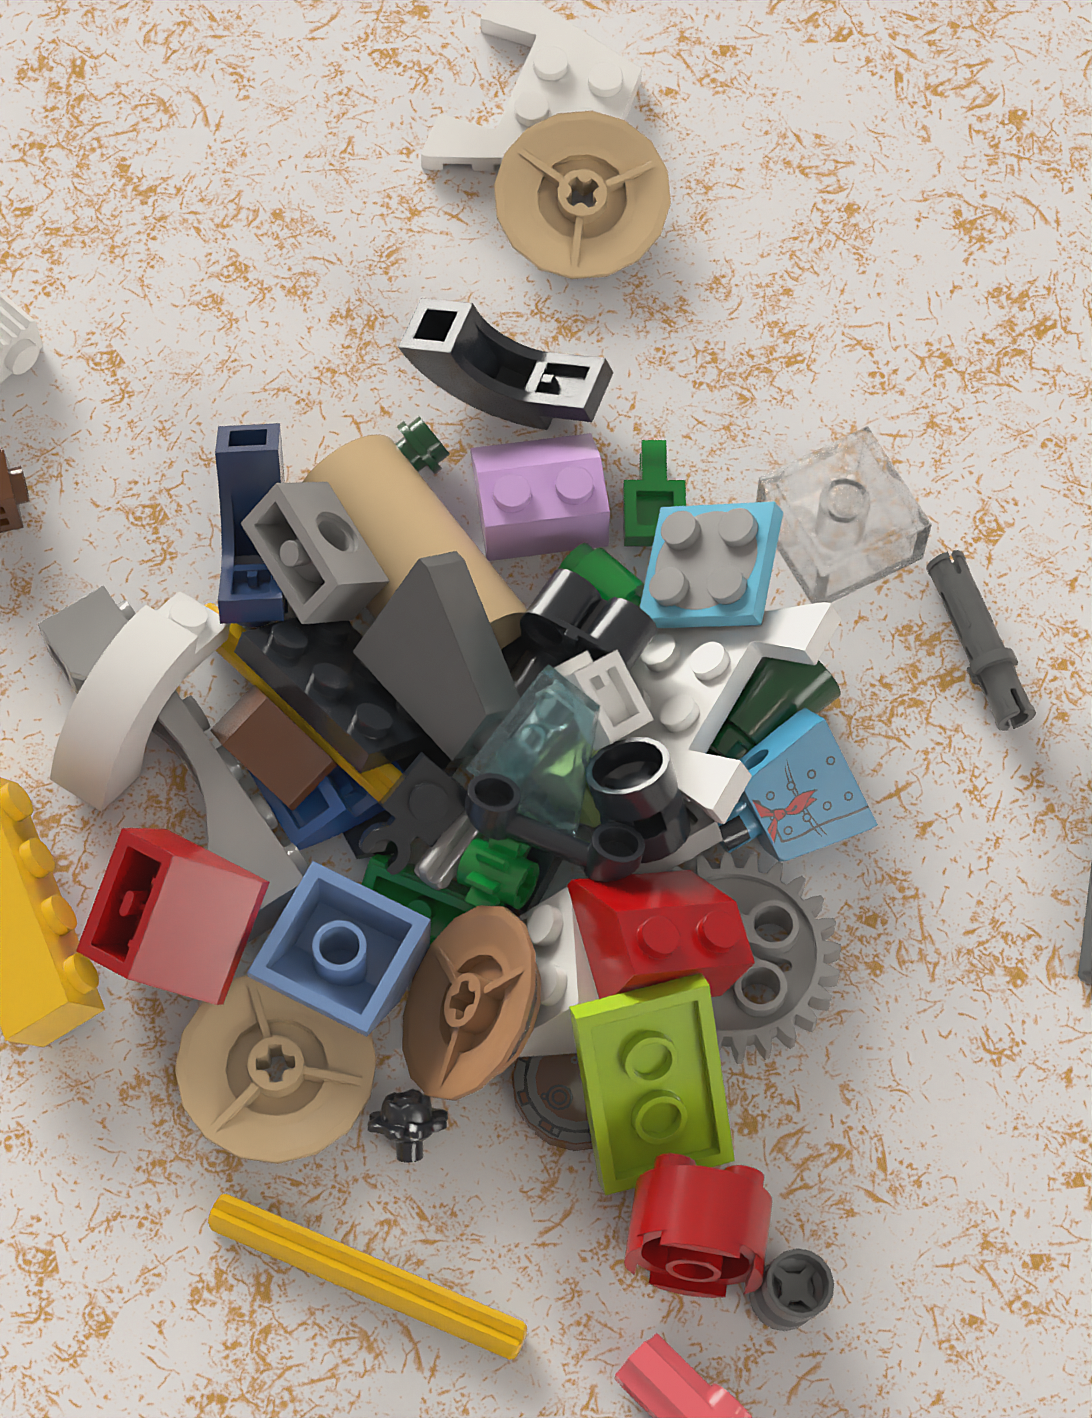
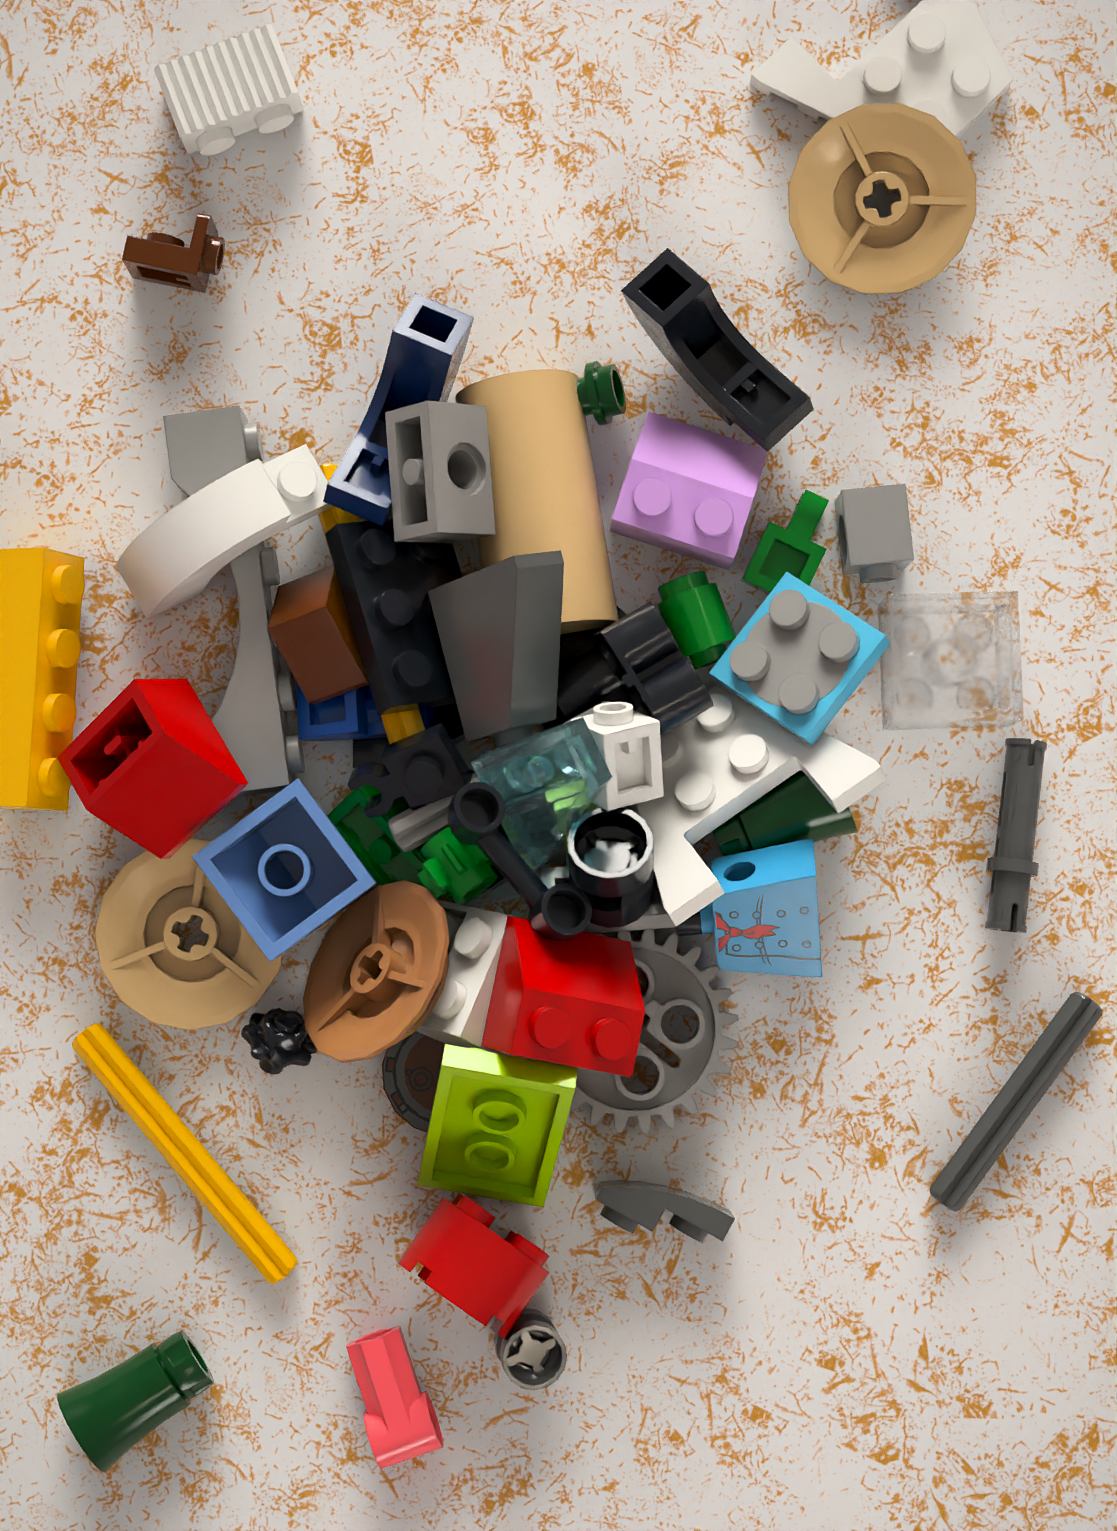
camera: 25 degrees right, 20 degrees up
(718, 450) = (874, 532): none -> light grey brick
(823, 1106) = (644, 1203): none -> dark grey slope

